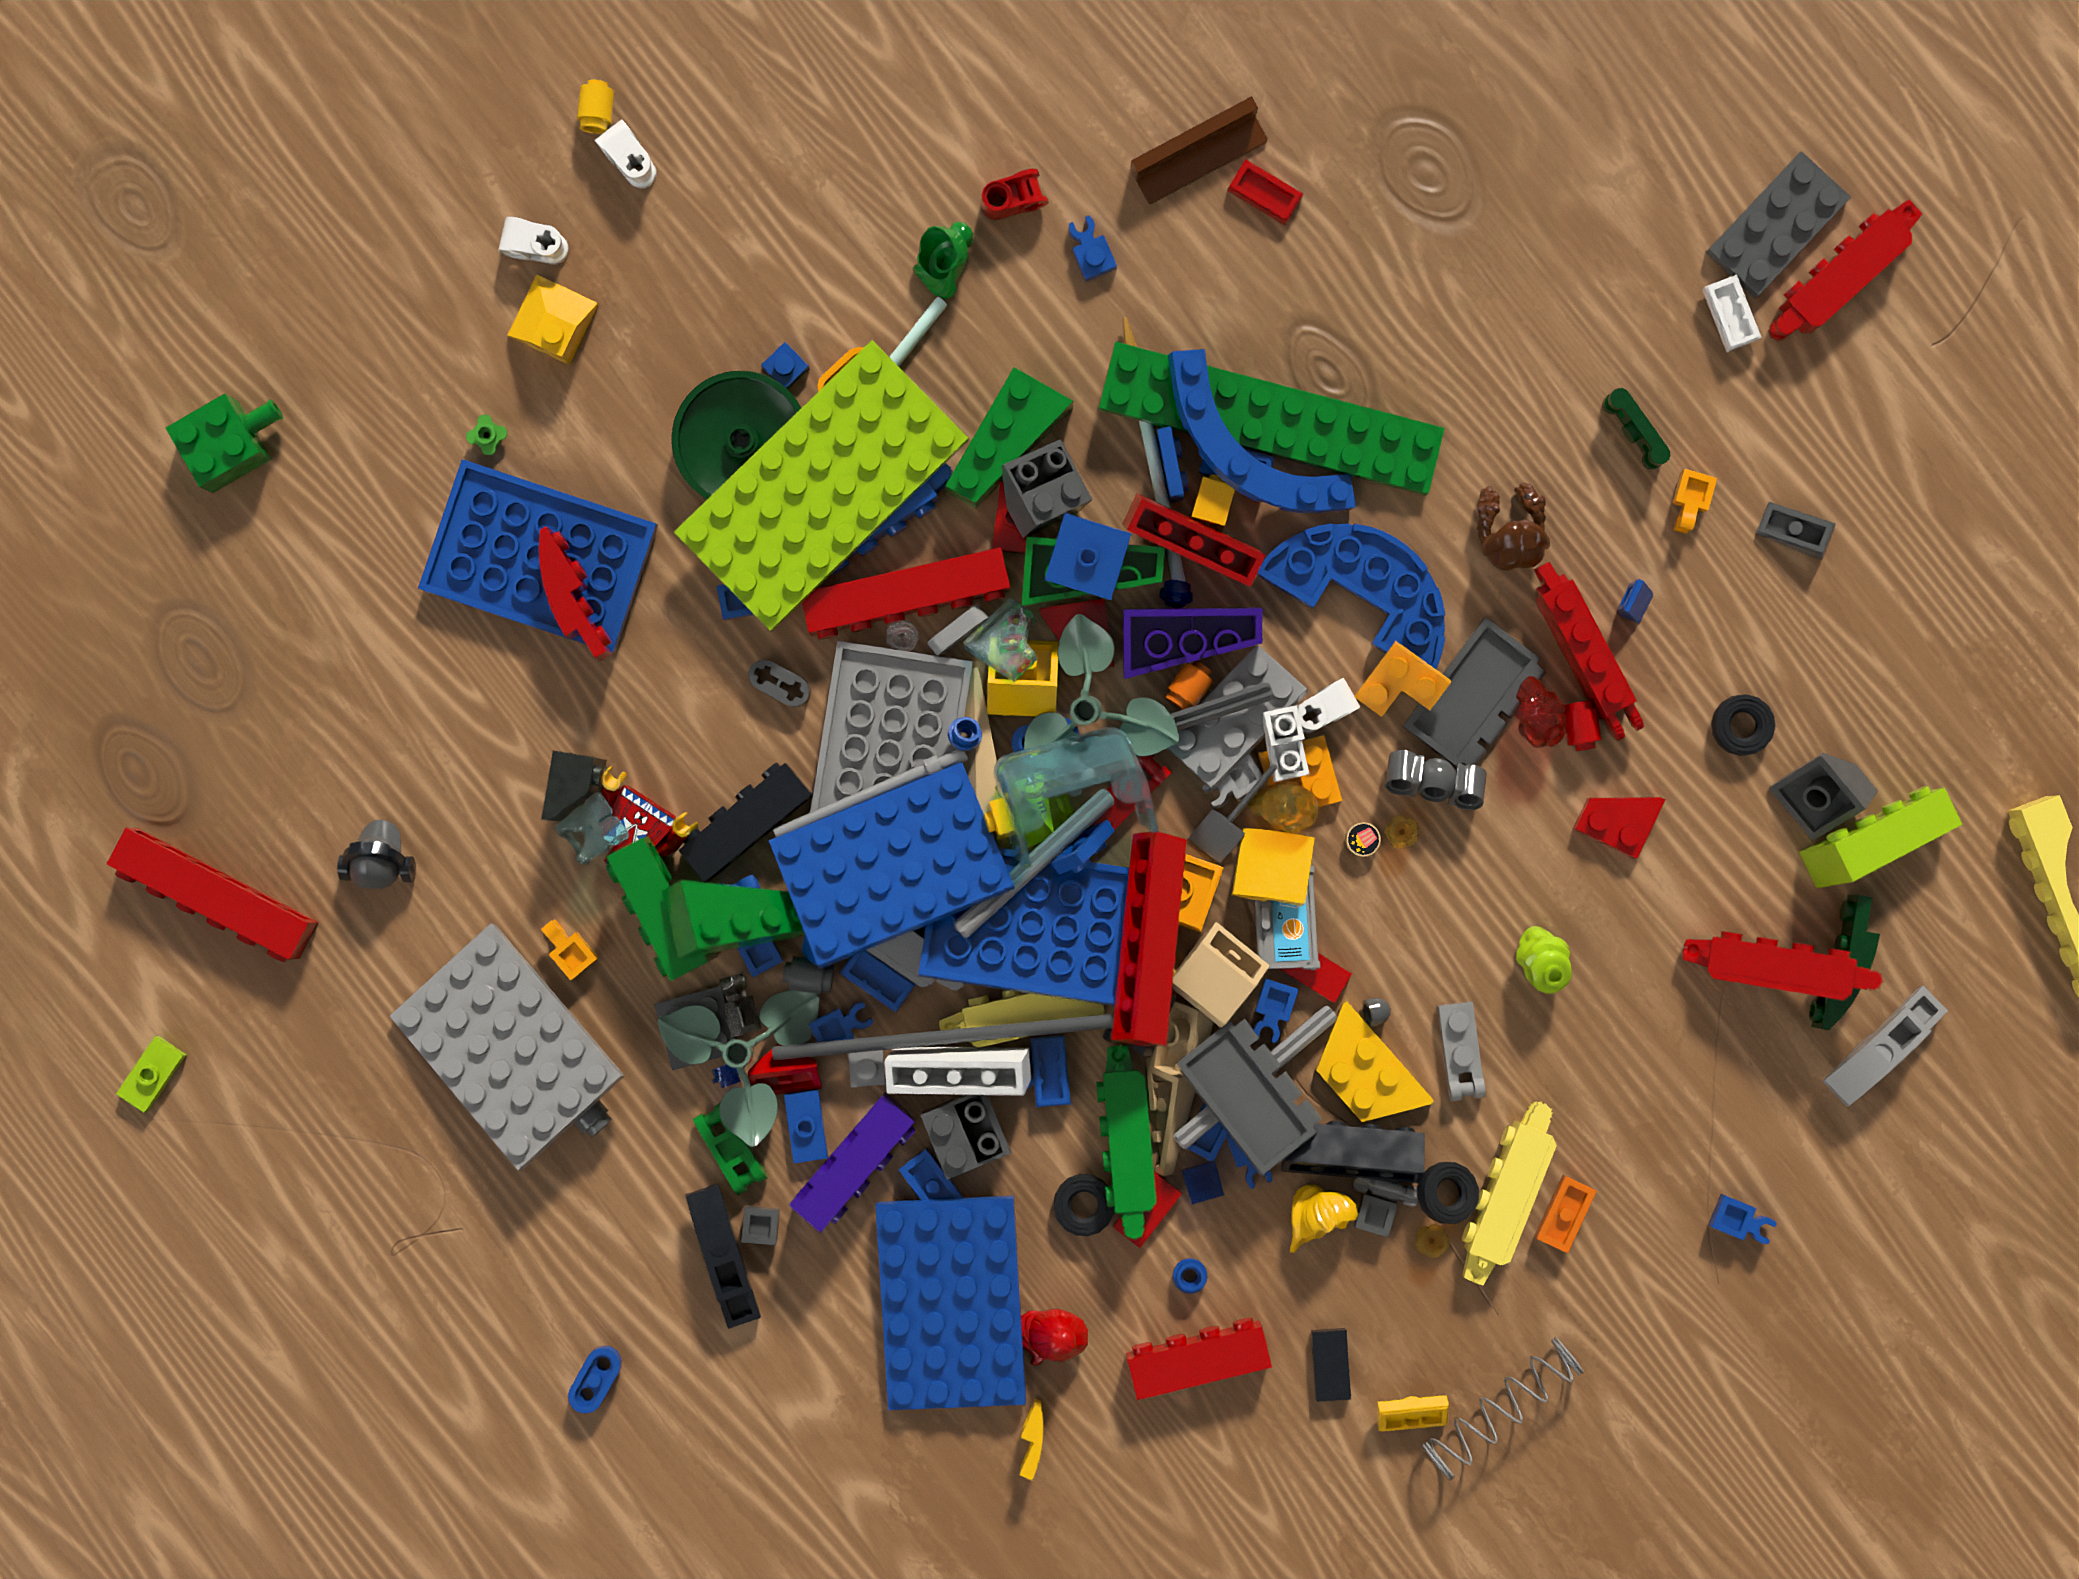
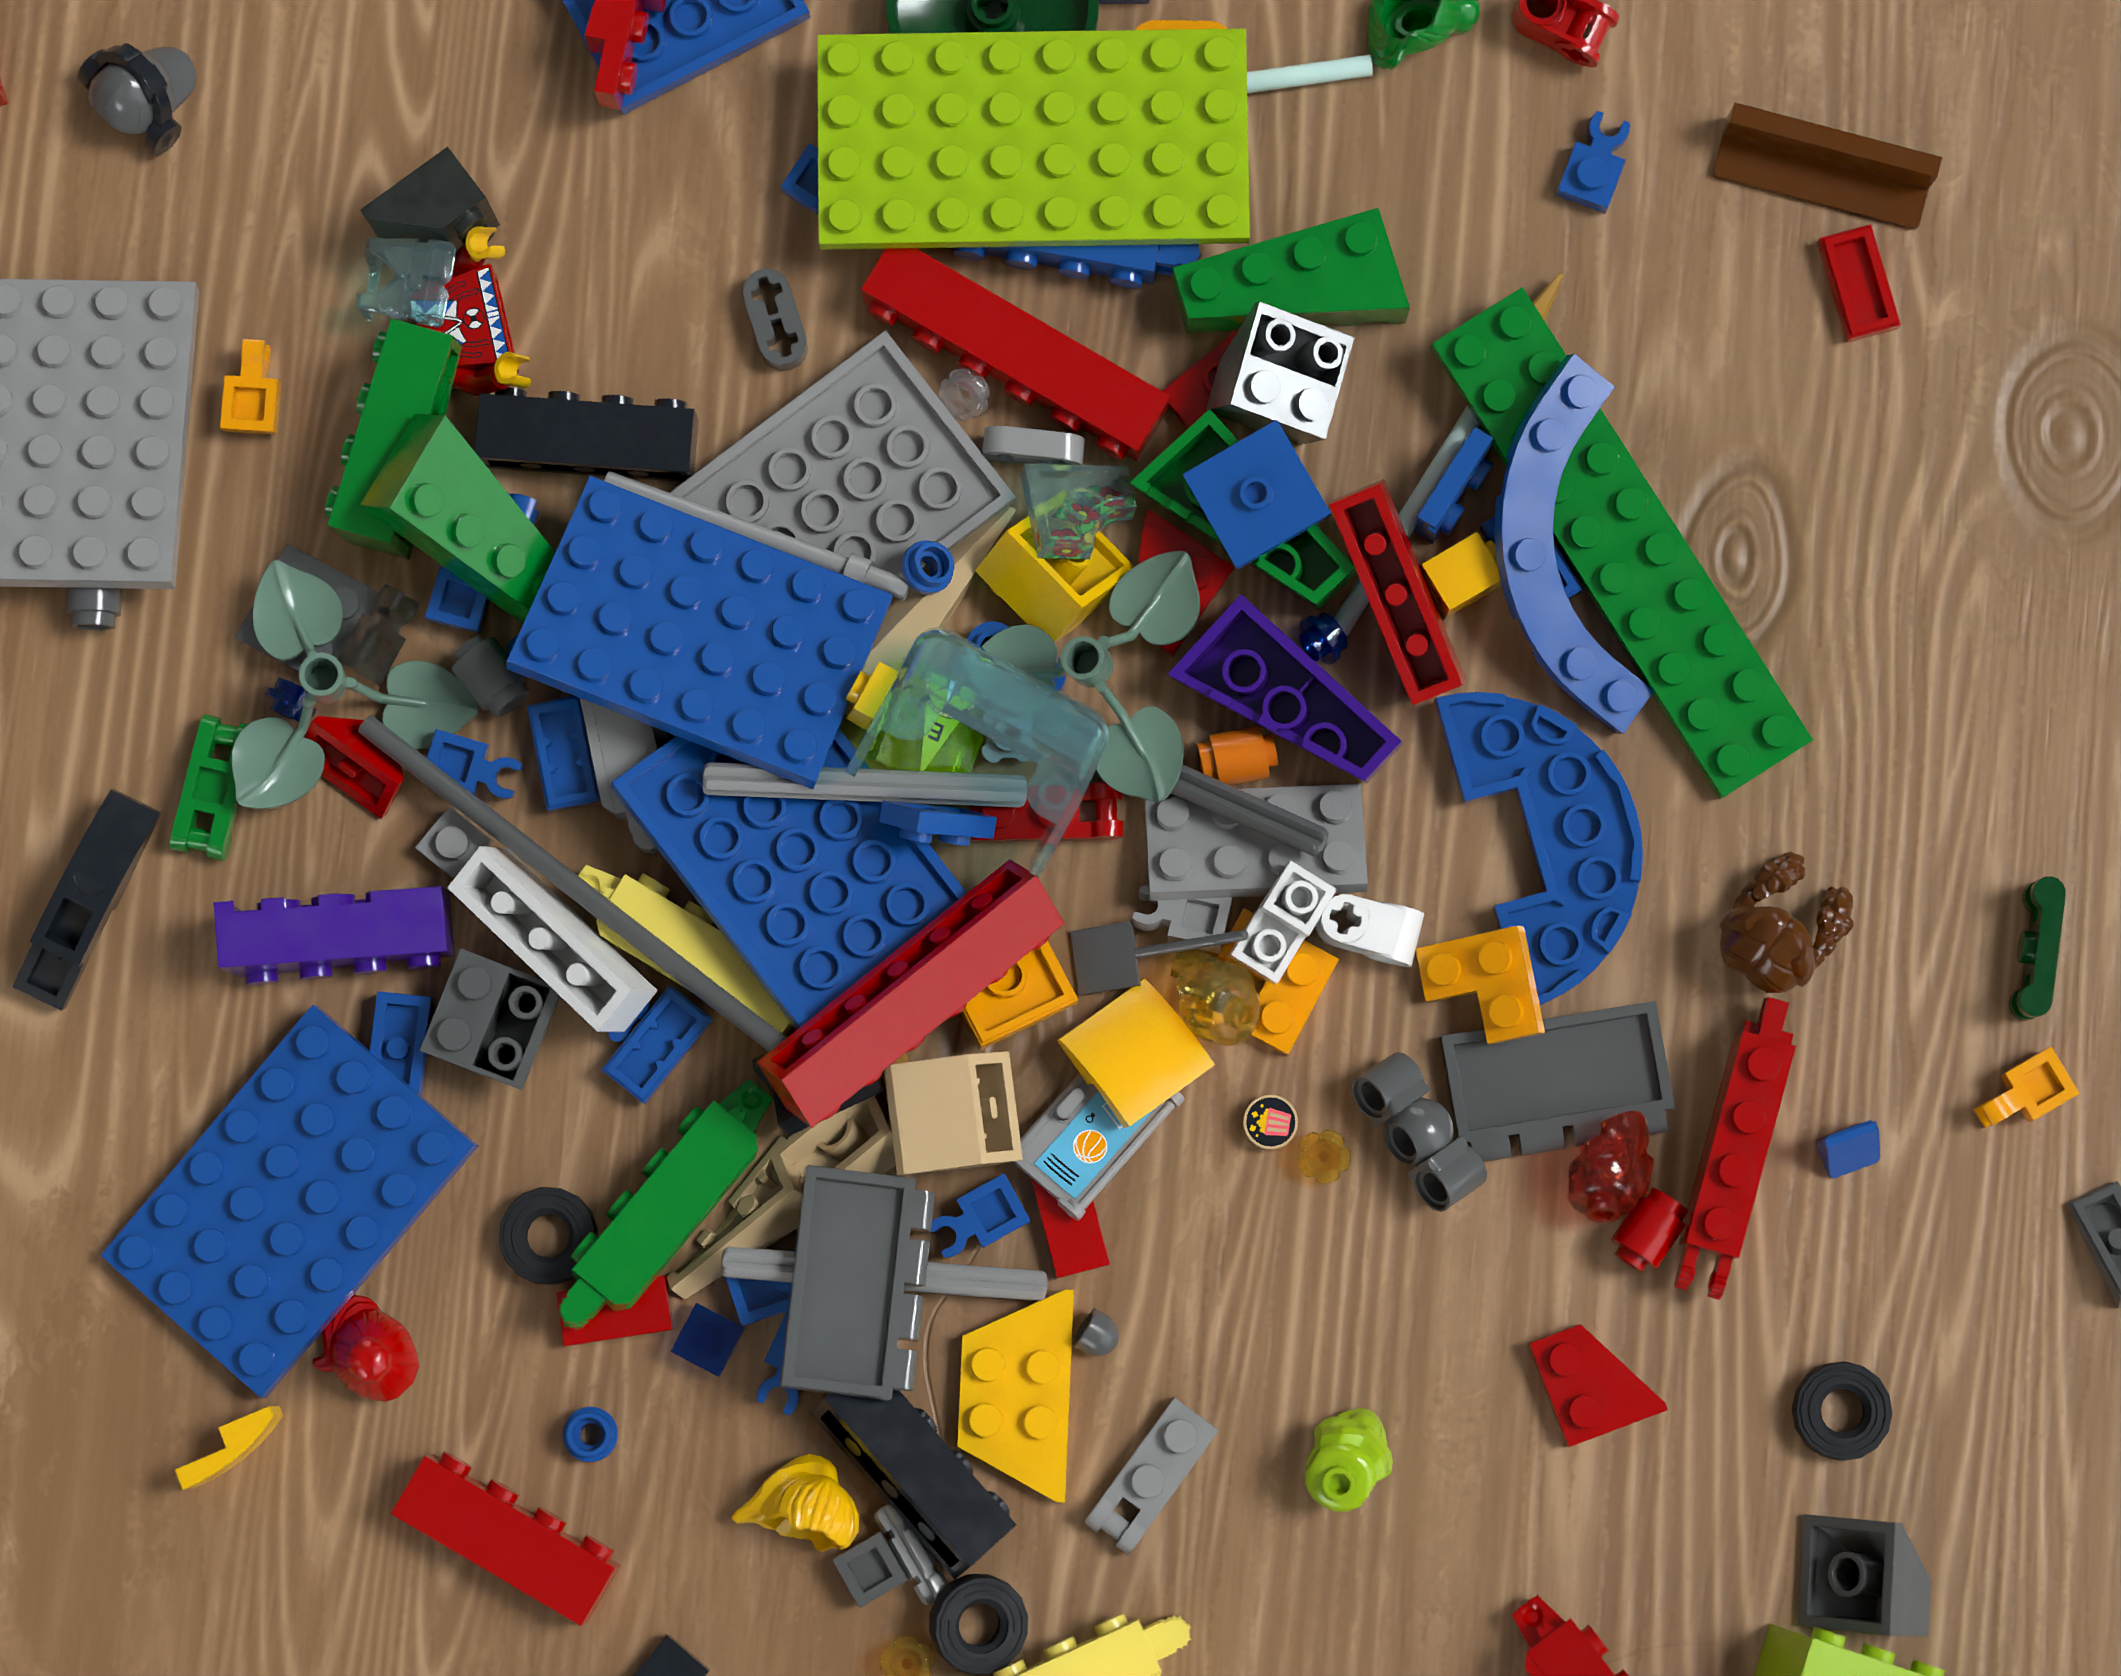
camera: 45 degrees right, 5 degrees down
(760, 1225) = (162, 906): dark grey plate -> none
(806, 1126) = (322, 844): blue plate -> none

